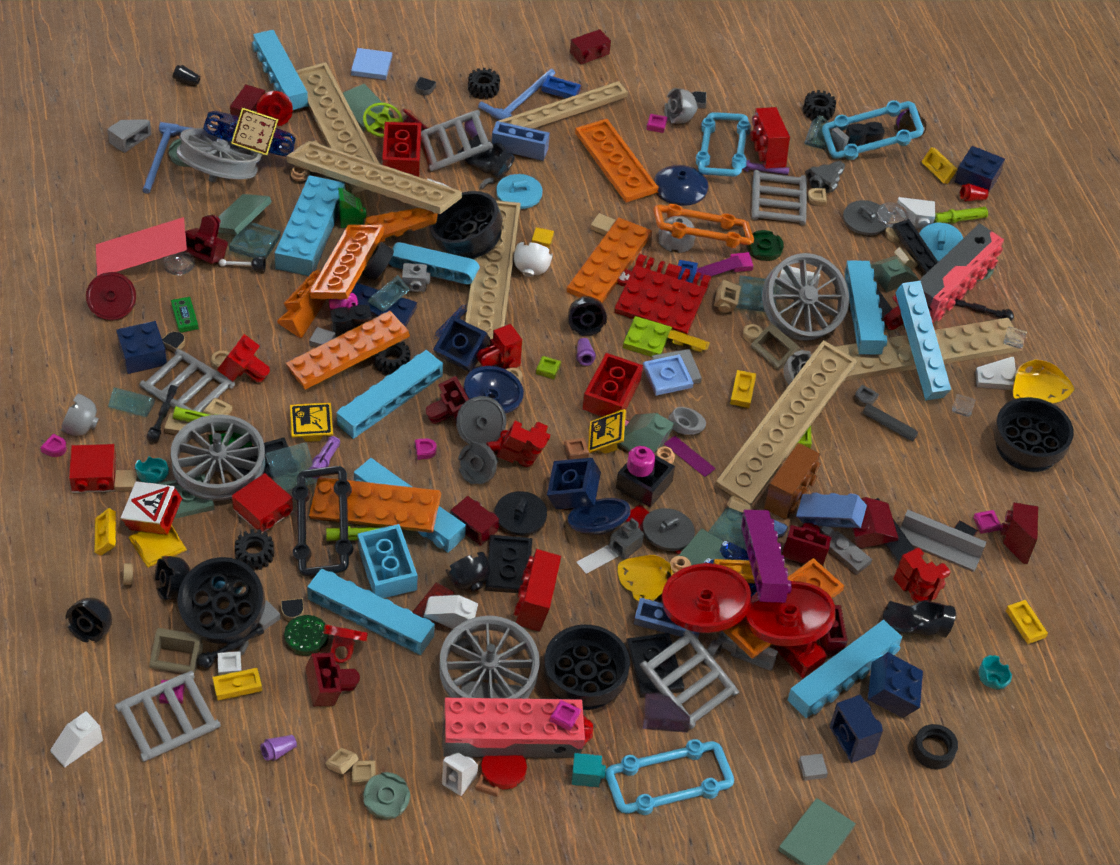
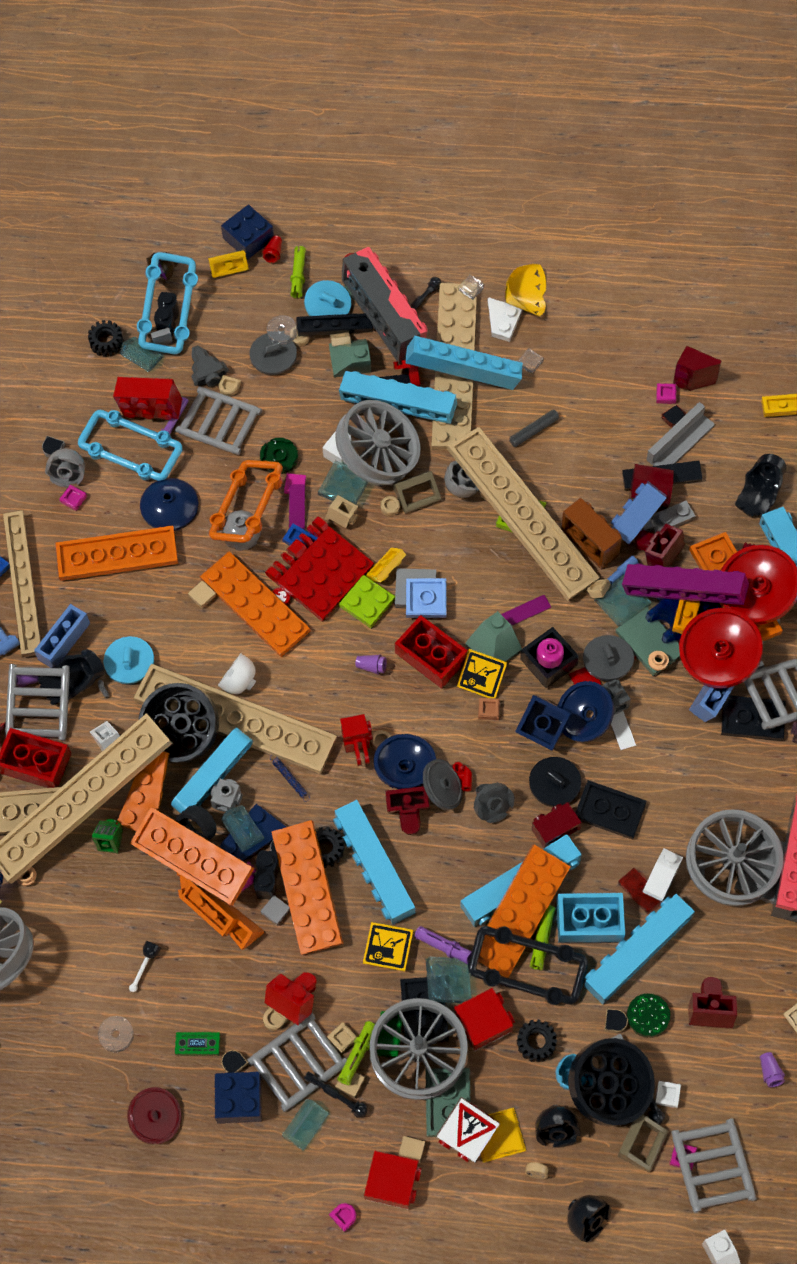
camera: 65 degrees left, 15 degrees up
(80, 417) = (320, 1180): light grey cylinder -> none
(105, 532) = (477, 1183): yellow plate -> none
(141, 247) = (91, 1069): coral sticker -> none
(152, 470) = (411, 1119): teal hair -> none
(204, 241) = (107, 997): dark red brick -> none
(237, 684) = (692, 1092): yellow plate -> none
(242, 212) = (72, 952): sand green tile -> none
(255, 241) = (114, 946): clear light blue plate -> none
(309, 226) = (114, 882): medium azure brick -> none
(345, 638) = (667, 977): red tile -> none
(425, 448) = (449, 847): dark pink tile -> none
(461, 343) = (338, 774): dark blue brick -> none
(469, 572) = (619, 846): black cylinder -> none
(523, 444) = (485, 748): red hips -> none
(537, 589) = (661, 790): red brick -> none
(543, 237) = (202, 657): yellow tile -> none
(548, 367) = (378, 703): lime tile -> none
(587, 316) = (331, 646): black cylinder -> none
(596, 646) = (755, 749): black wheel -> none
(645, 575) = (664, 694): yellow piece -> none
(667, 453) = (522, 628): light nougat plate -> none
(687, 421) = (486, 600): light grey hat -> none
(743, 389) = (460, 538): yellow plate -> none
(865, 396) = (497, 437): flat silver tile -> none
(918, 211) = (286, 303): white slope -> none
(919, 578) = (723, 469): red hips -> none
(1032, 434) = (591, 298): black wheel -> none

